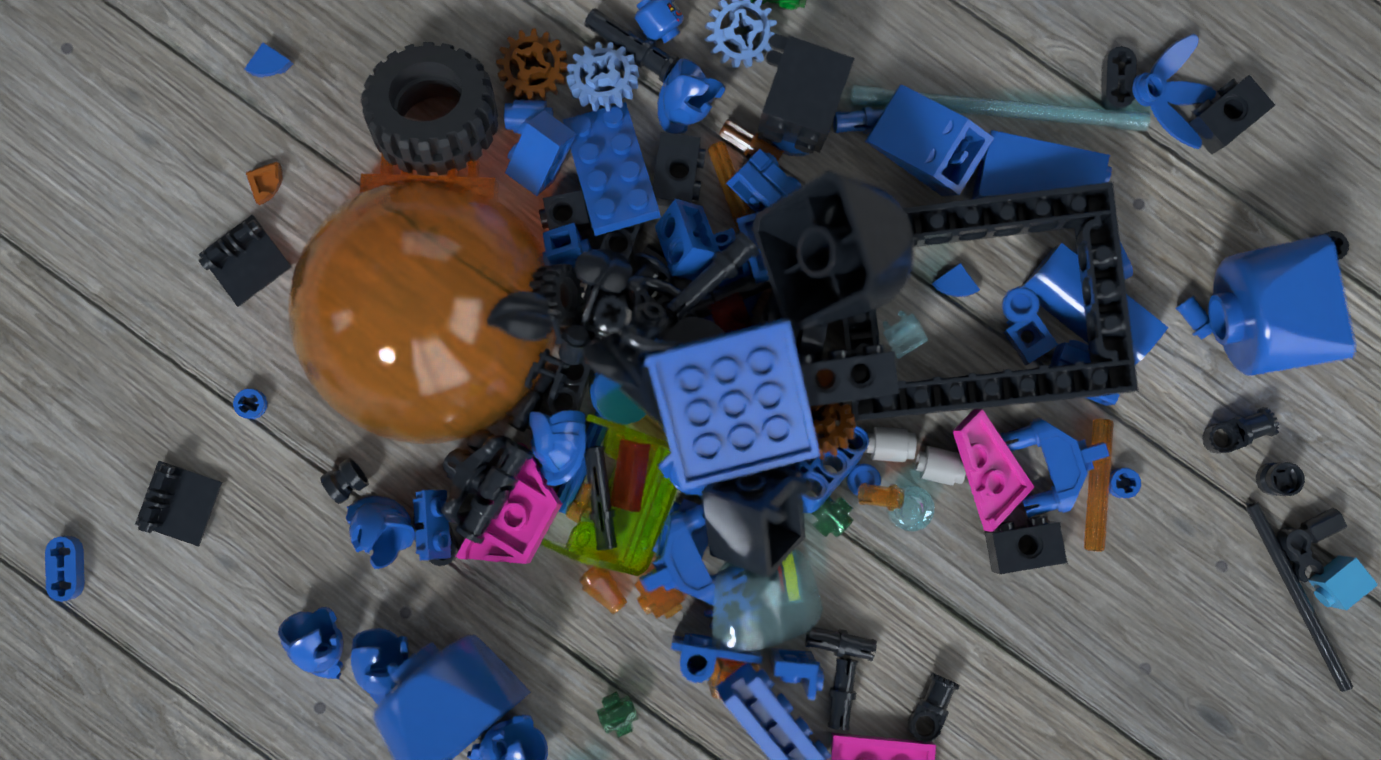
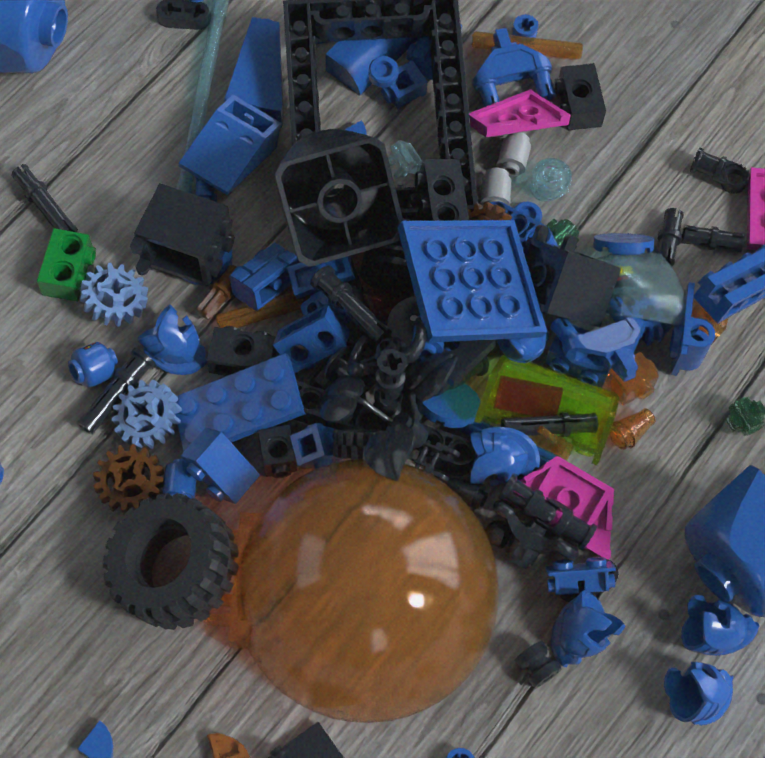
camera: 90 degrees left, 20 degrees down
(798, 664) = (697, 259): blue bracket -> none
(822, 588) = (624, 243): none -> blue tile
(883, 496) = (542, 194): clear orange pin -> none

